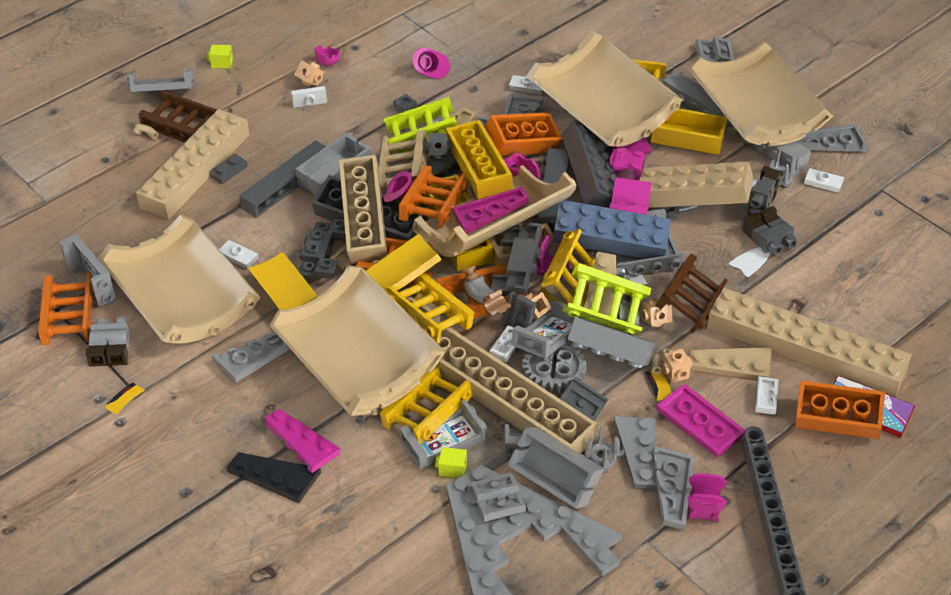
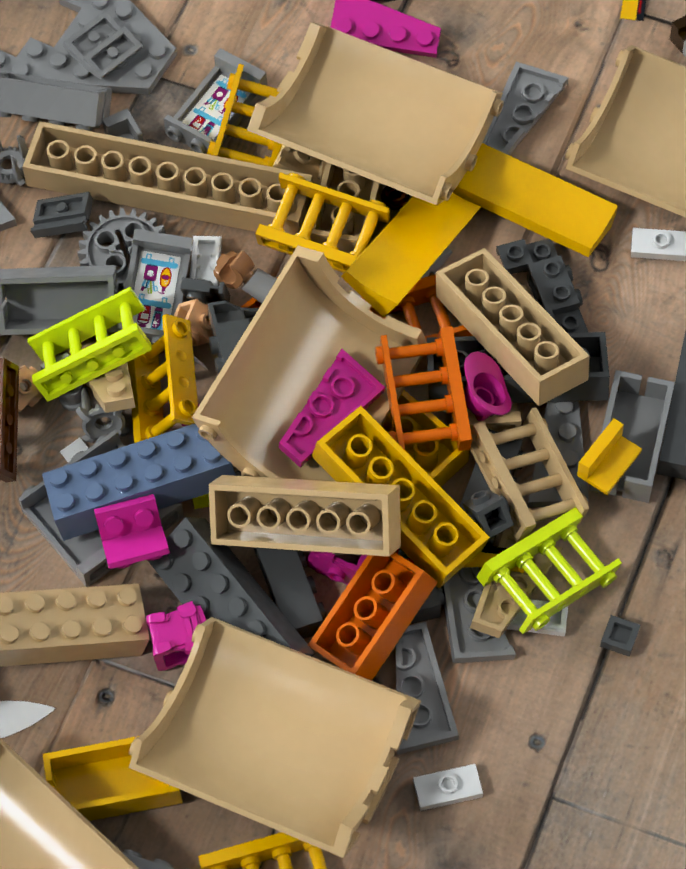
camera: 155 degrees right, 15 degrees up
(359, 146) = (608, 458): none -> yellow panel
(431, 63) = (640, 743): dark pink piece -> none
(451, 462) = (183, 72): neon yellow brick -> none
(533, 152) = (305, 515): none -> tan brick

